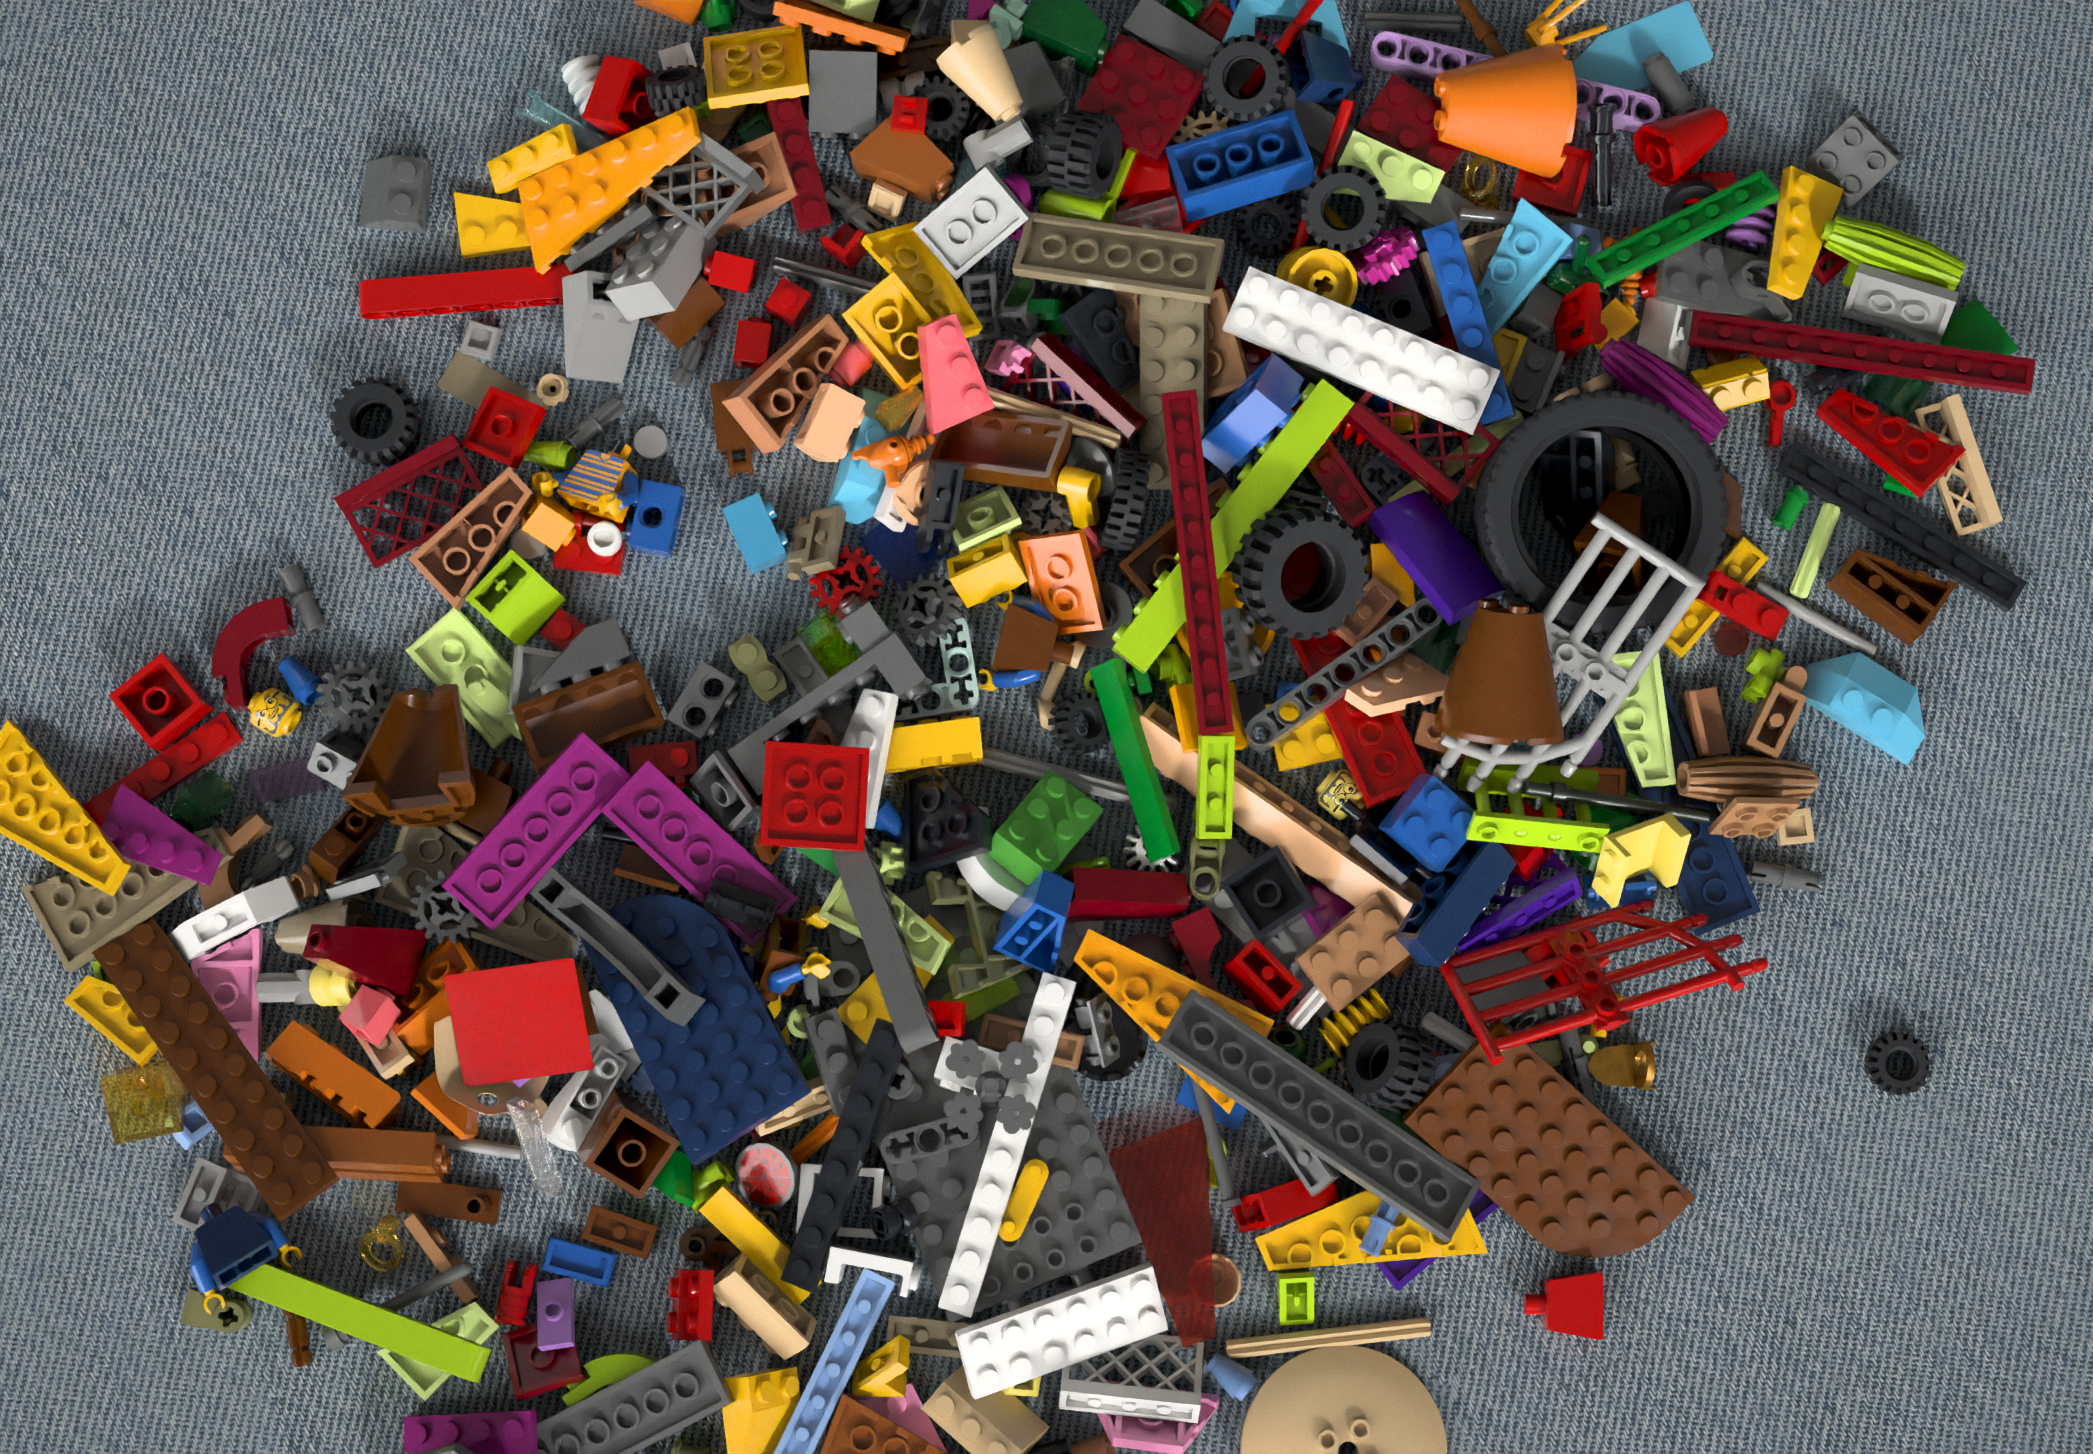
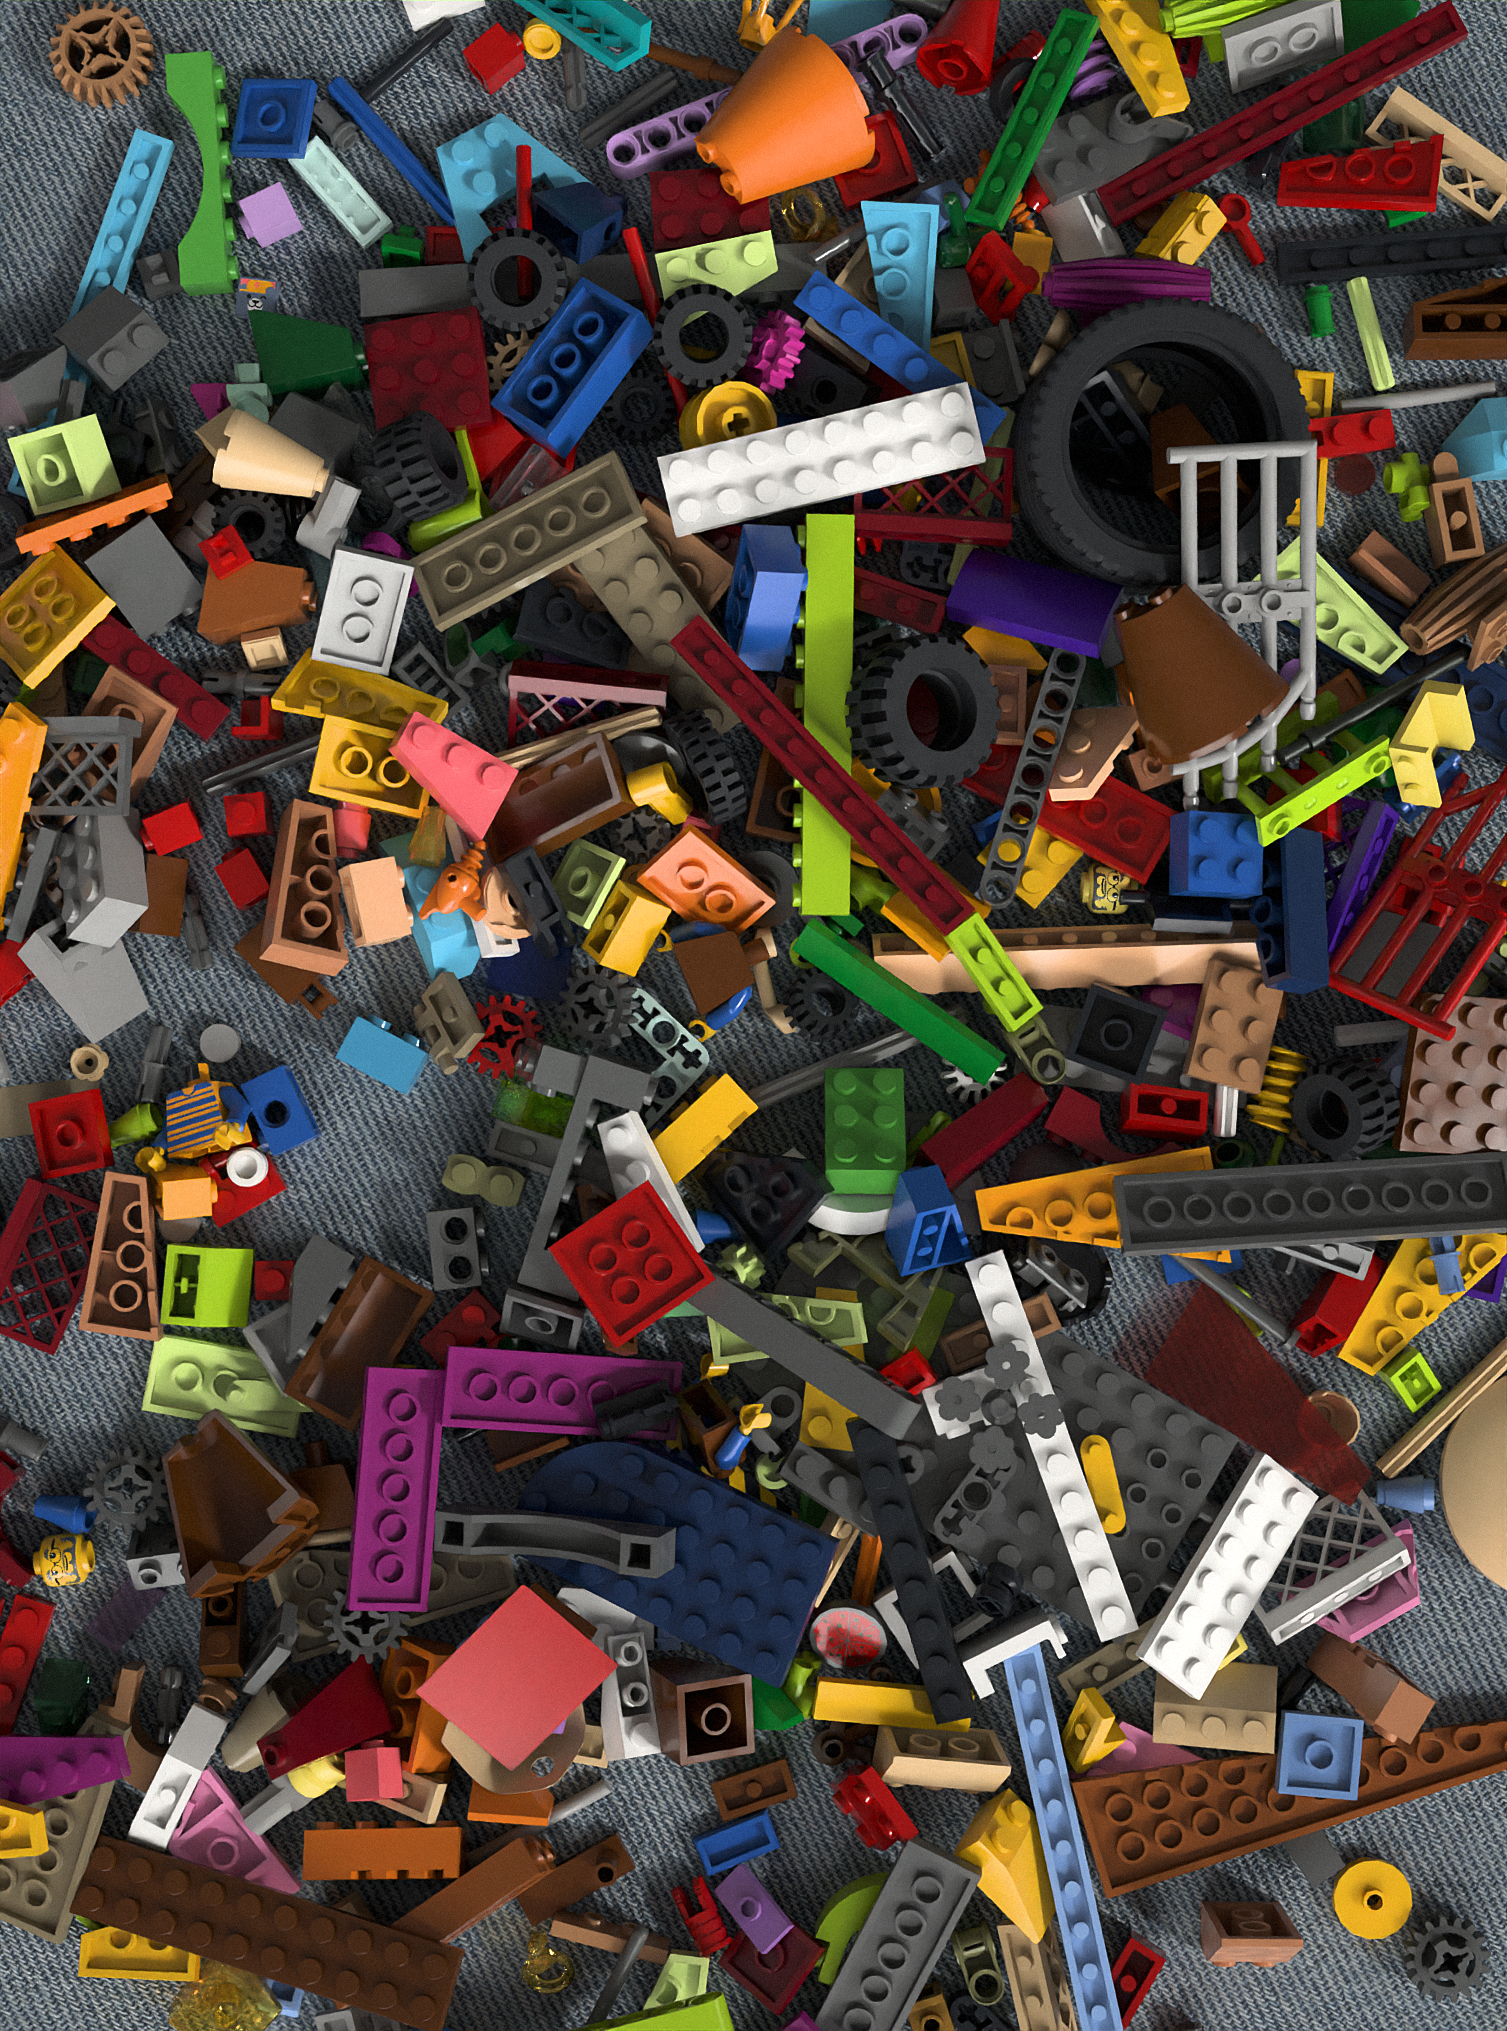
camera: 35 degrees left, 5 degrees up
(535, 1147) = (619, 1775): clear tile -> none
(1006, 358) = (491, 714): bright pink plate -> none

